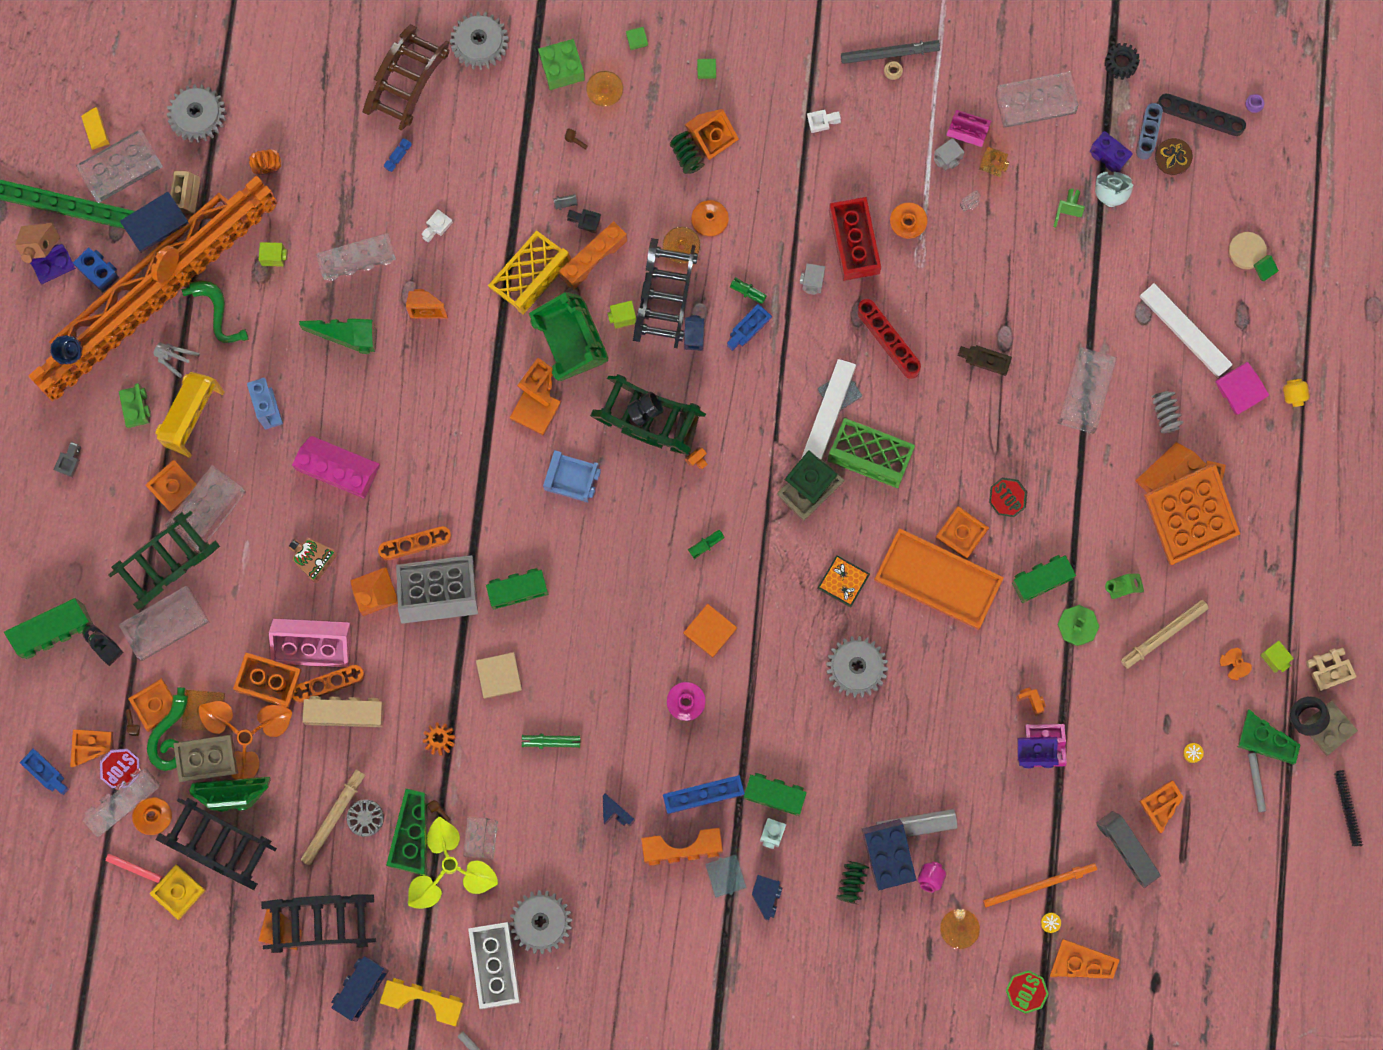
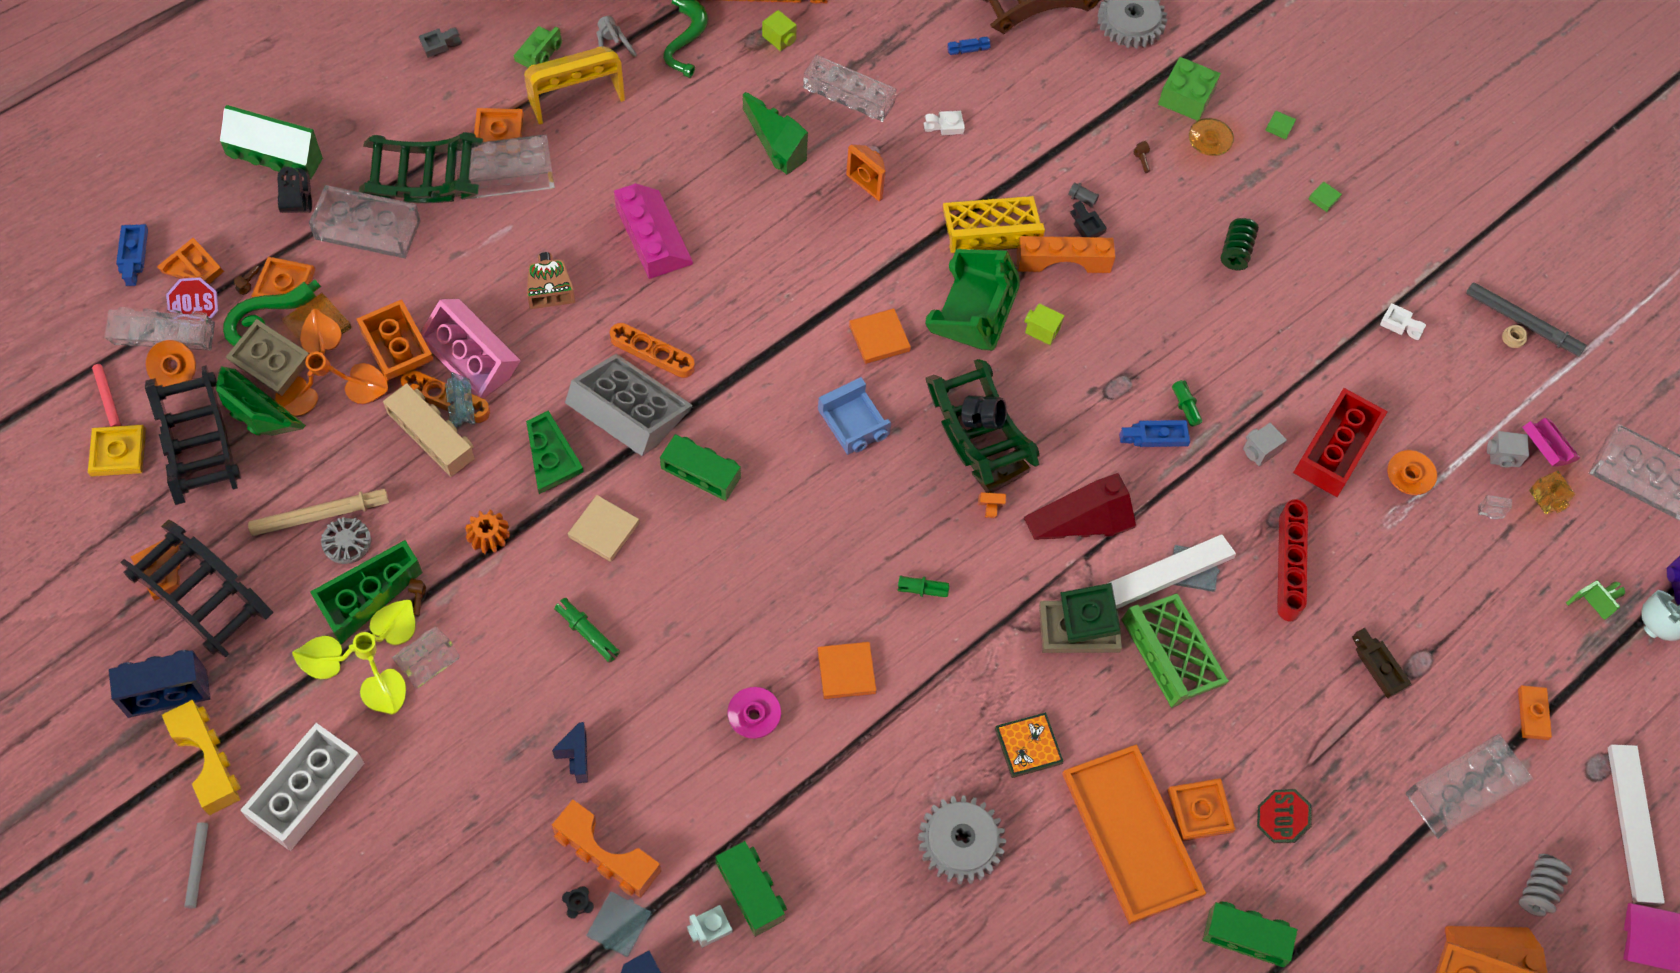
camera: 35 degrees right, 15 degrees down
(264, 403) = (640, 129): medium blue panel -> none
(350, 684) = (459, 391): none -> clear light blue hinge
(374, 591) = (568, 356): orange slope -> none
(424, 660) = (551, 453): none -> green wing
(538, 382) = (905, 311): orange wing -> none
(552, 930) = (391, 808): light grey gear -> none
(649, 293) = (1086, 325): black fence -> none
(680, 236) = (1160, 305): clear yellow dish -> none
(689, 886) = (574, 895): none -> black plate
(694, 333) = (1097, 391): dark blue slope -> none
(703, 794) = (675, 811): blue fence -> none
(708, 226) = (1209, 324): orange dish -> none
(712, 132) = (1281, 247): orange slope -> none
(756, 410) = (1091, 510): none -> dark red wedge
(1087, 311) = (1534, 712): none -> orange plate

